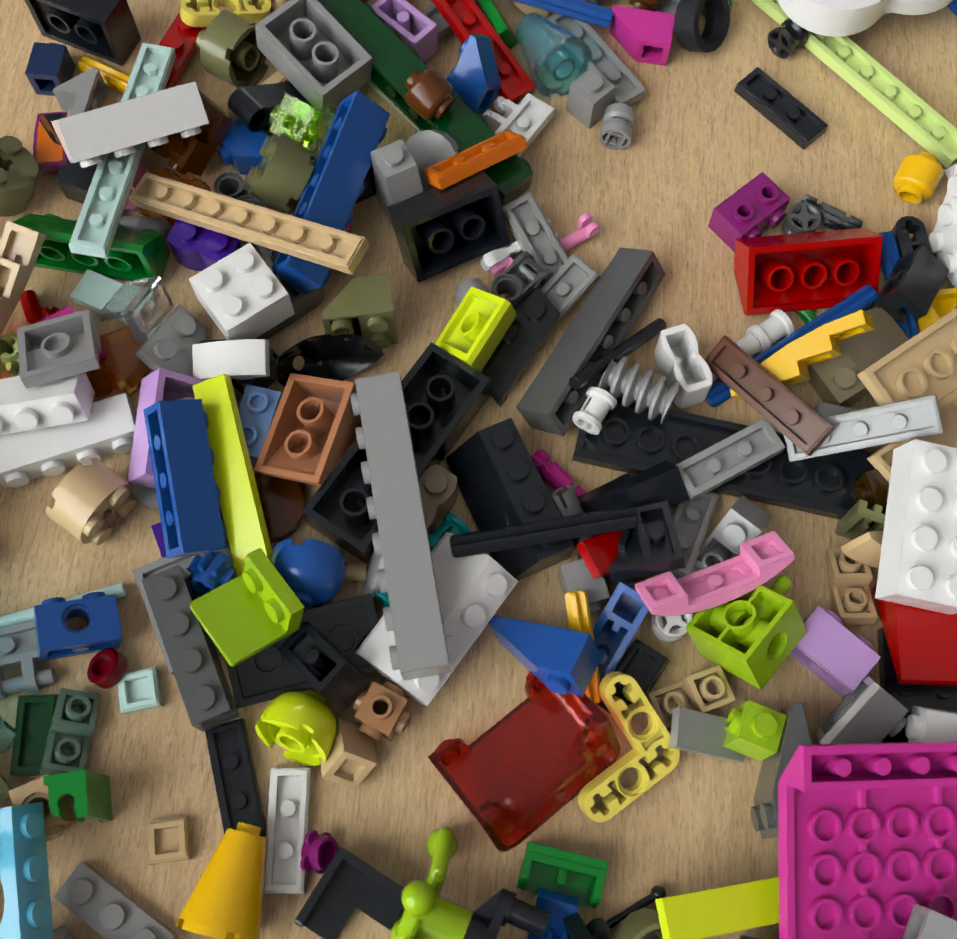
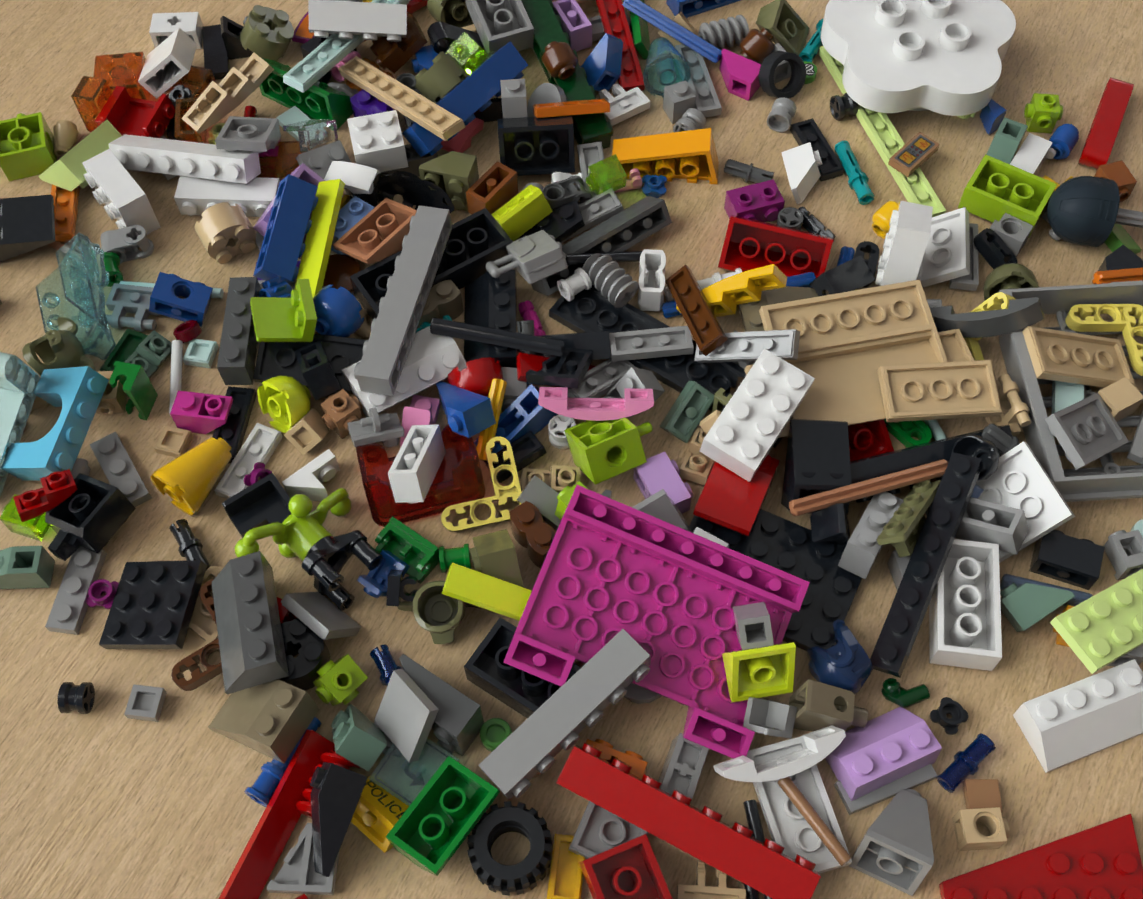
camera: 25 degrees right, 10 degrees down
(125, 744) = (176, 370): none -> white bar
(191, 787) = (200, 411): none -> dark pink slope
(383, 833) = (310, 477): none -> white slope
(420, 310) = (492, 189): none -> dark orange brick
(440, 720) = (376, 429): none -> light grey hips
(485, 679) = (421, 412): none -> bright pink slope
(529, 758) = (416, 463): none -> white brick
(533, 395) = (532, 257): none -> light grey piece
(541, 598) = (477, 375): none -> red cylinder
(561, 240) = (606, 175): none -> clear neon green brick
(613, 234) = (654, 185): none -> blue plate
(616, 181) = (673, 155): none -> light orange wedge
(628, 859) = (454, 555): none -> green bush
(691, 847) = (496, 557): none -> olive brick
(719, 169) = (747, 172): none -> dark grey axle
(721, 74) = (781, 114): none -> light grey wheel
(722, 792) = (531, 531): none -> reddish brown brick
(783, 144) = (802, 169): none -> white slope
(810, 531) = (687, 411): none -> sand green slope
(849, 133) = (857, 179): none -> teal pin
(905, 79) = (913, 154): none -> tile

